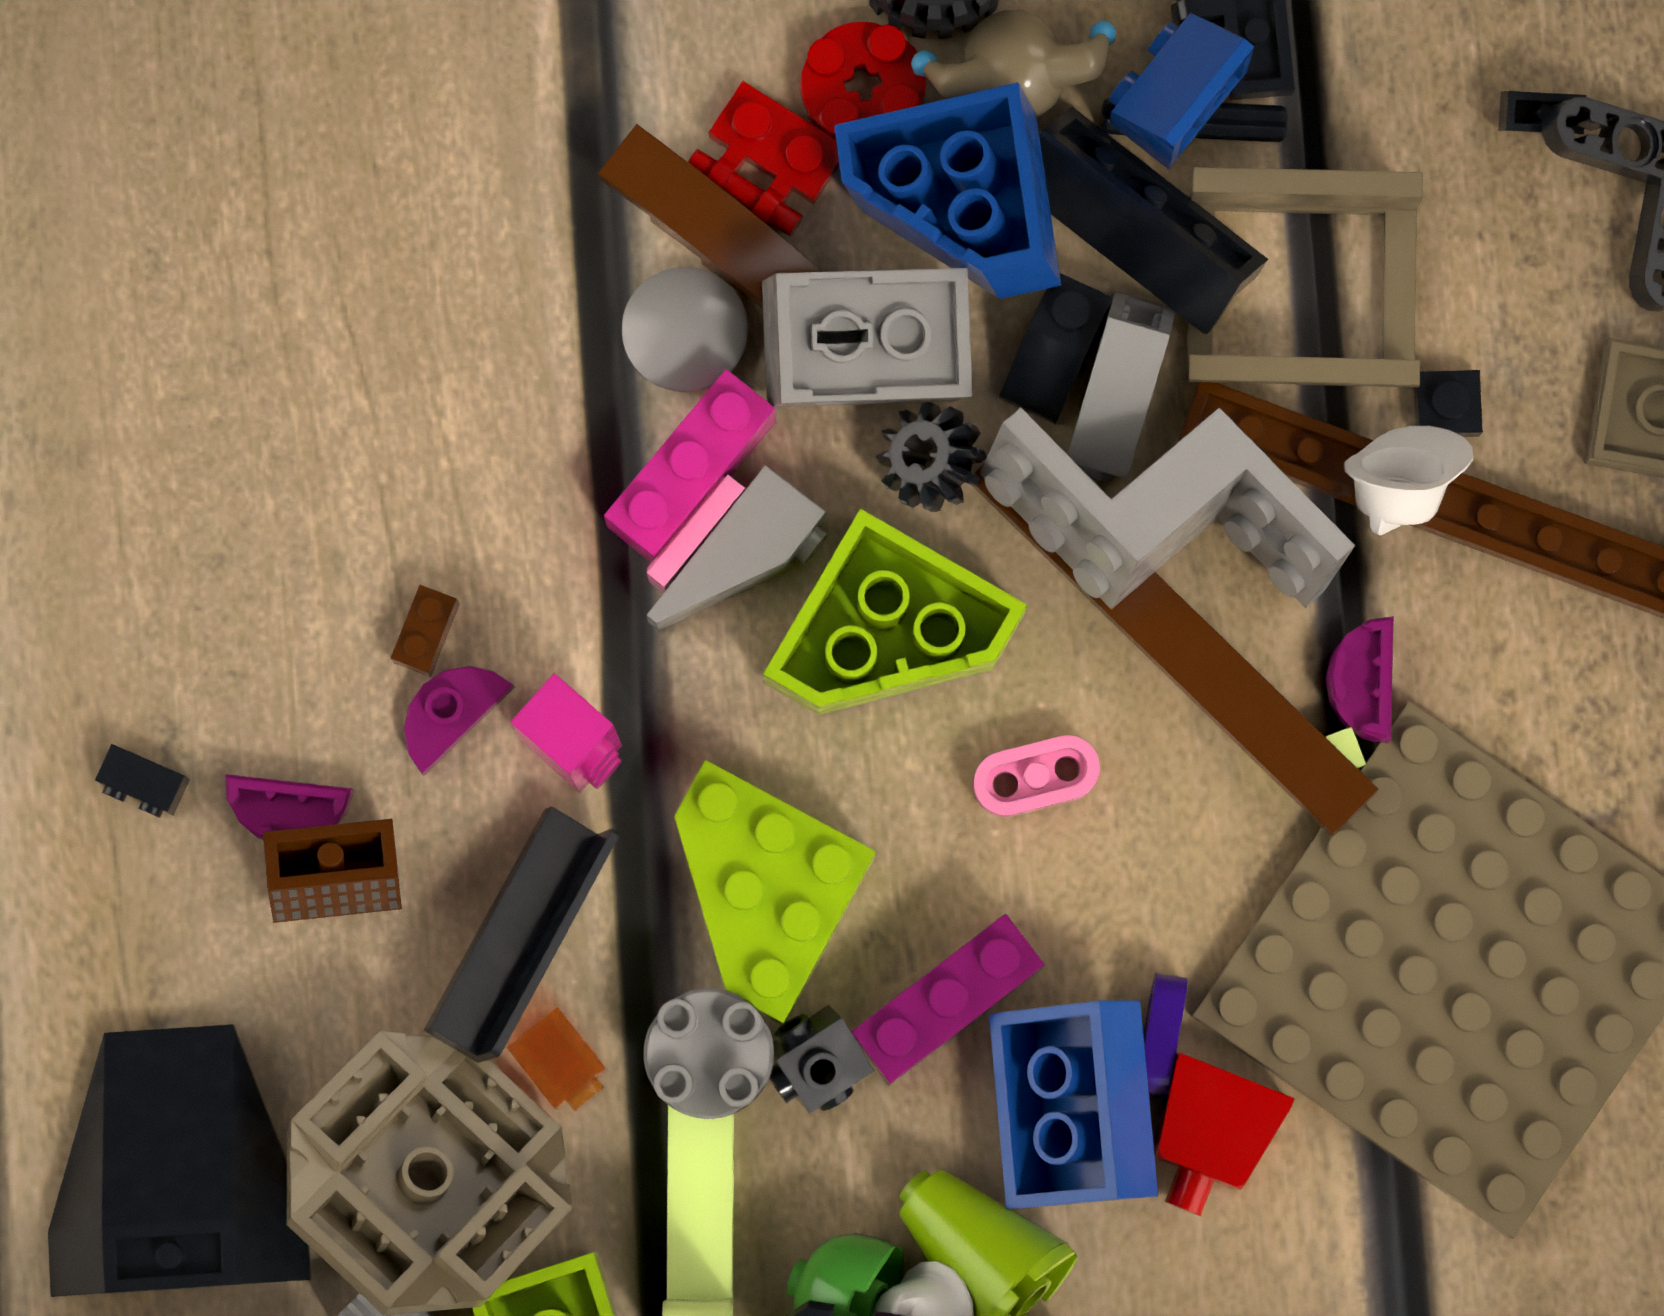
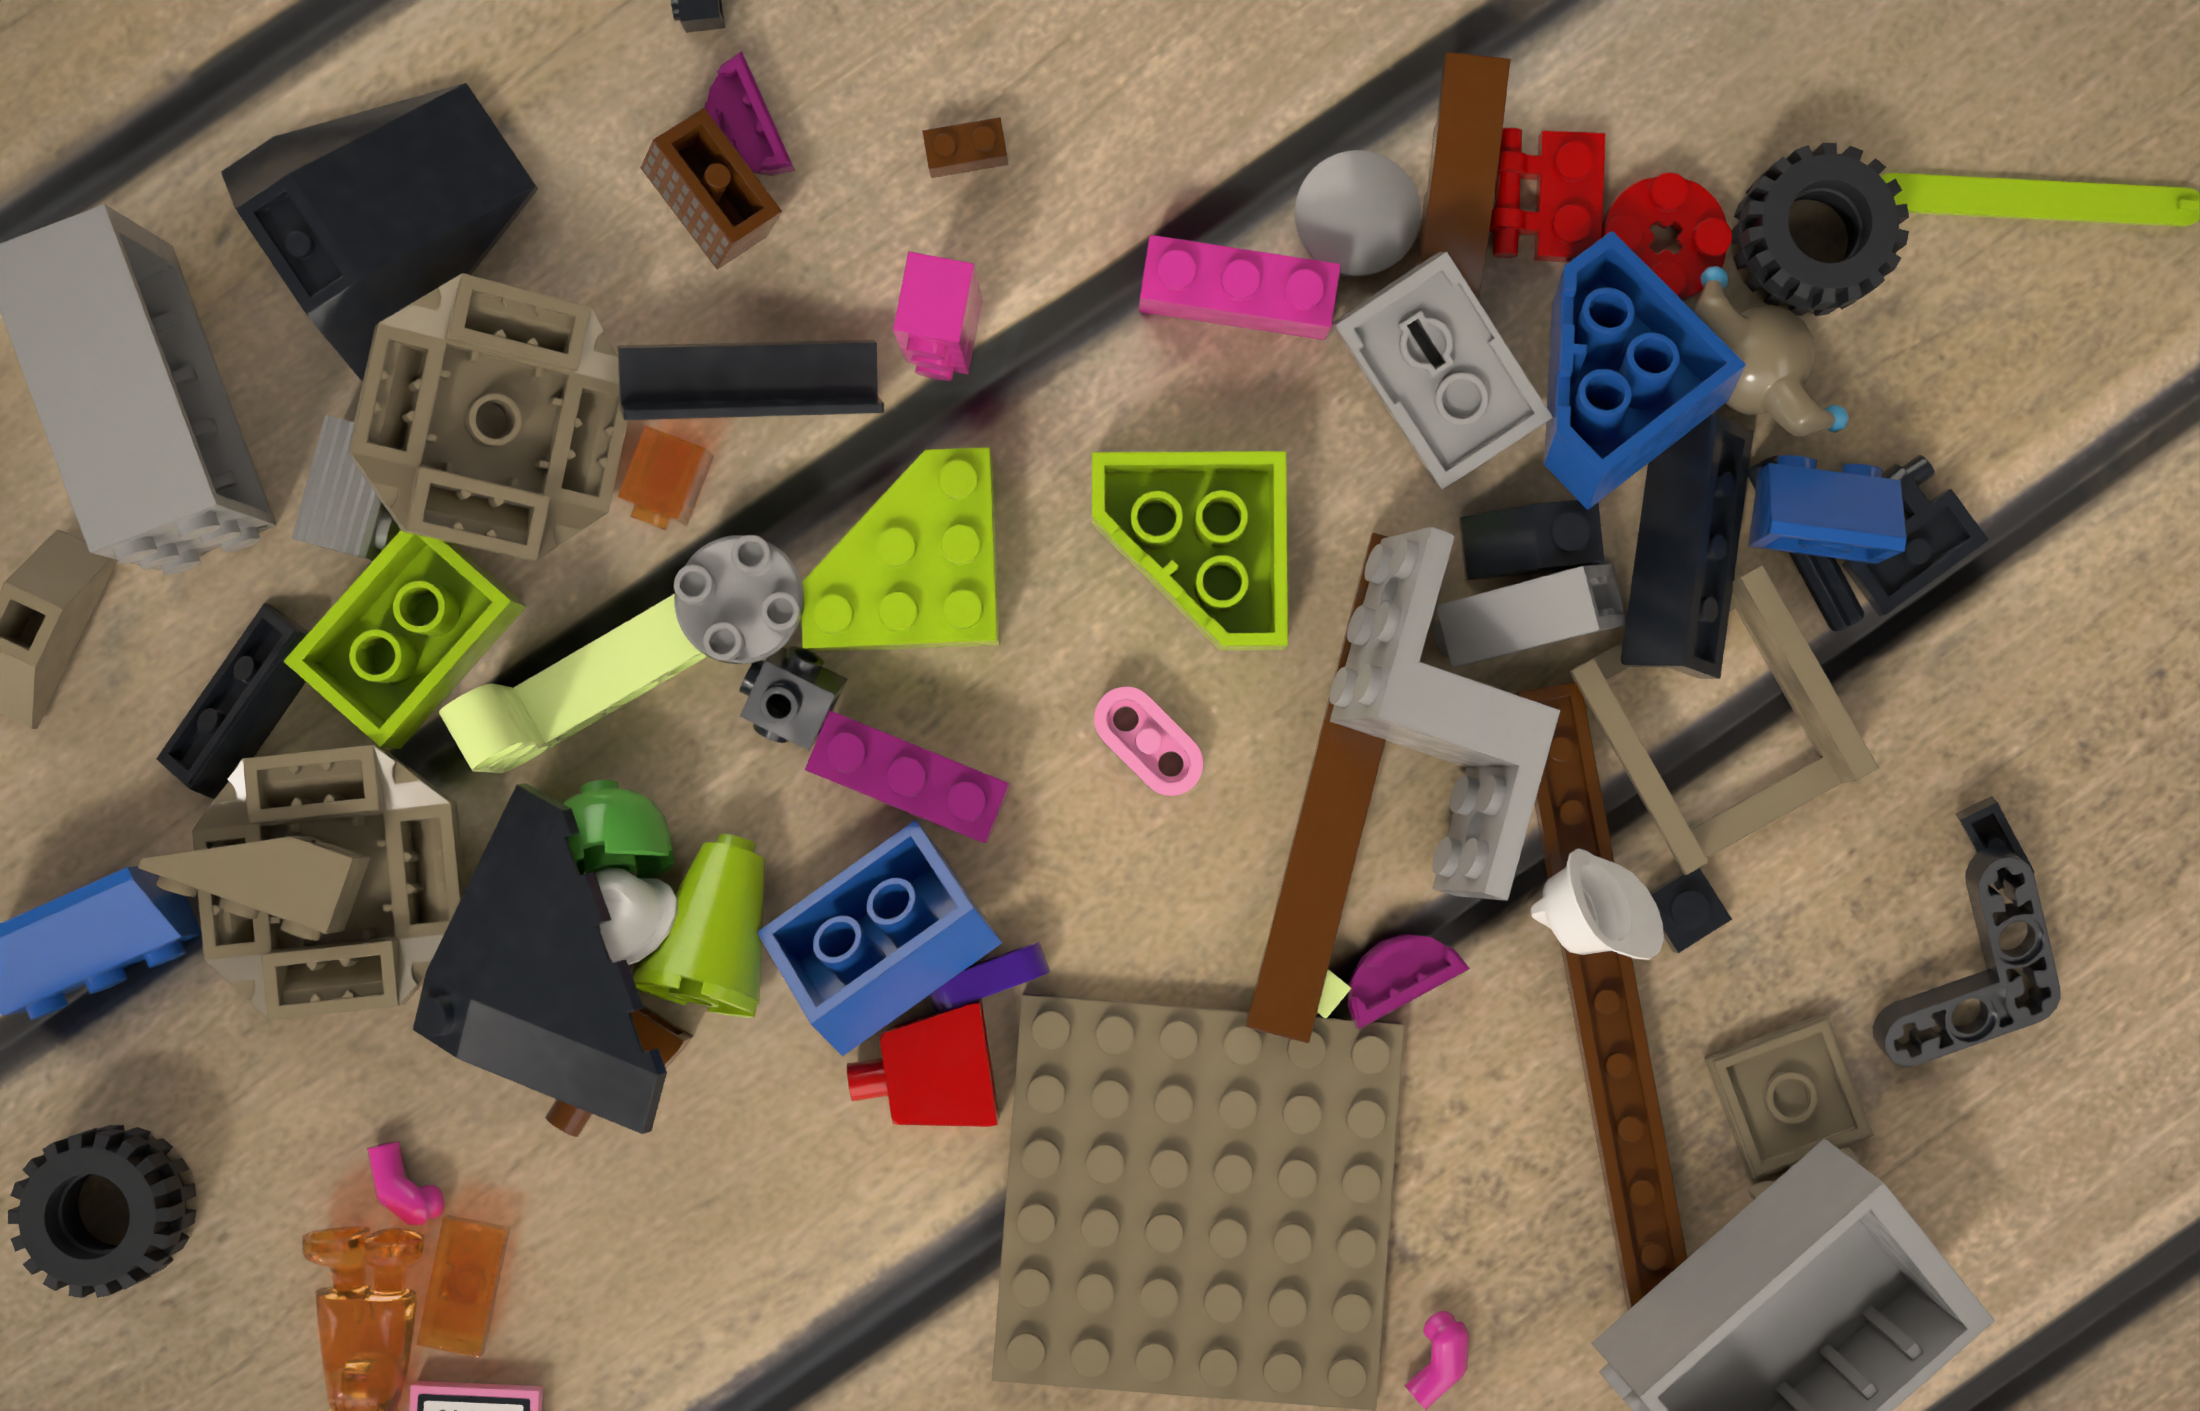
camera: 60 degrees right, 5 degrees up
(448, 710) = (908, 208): magenta plate -> none
(693, 533) = (1184, 326): bright pink tile -> none
(751, 544) = (1203, 378): light grey slope -> none
(911, 449) = (1364, 469): black gear -> none

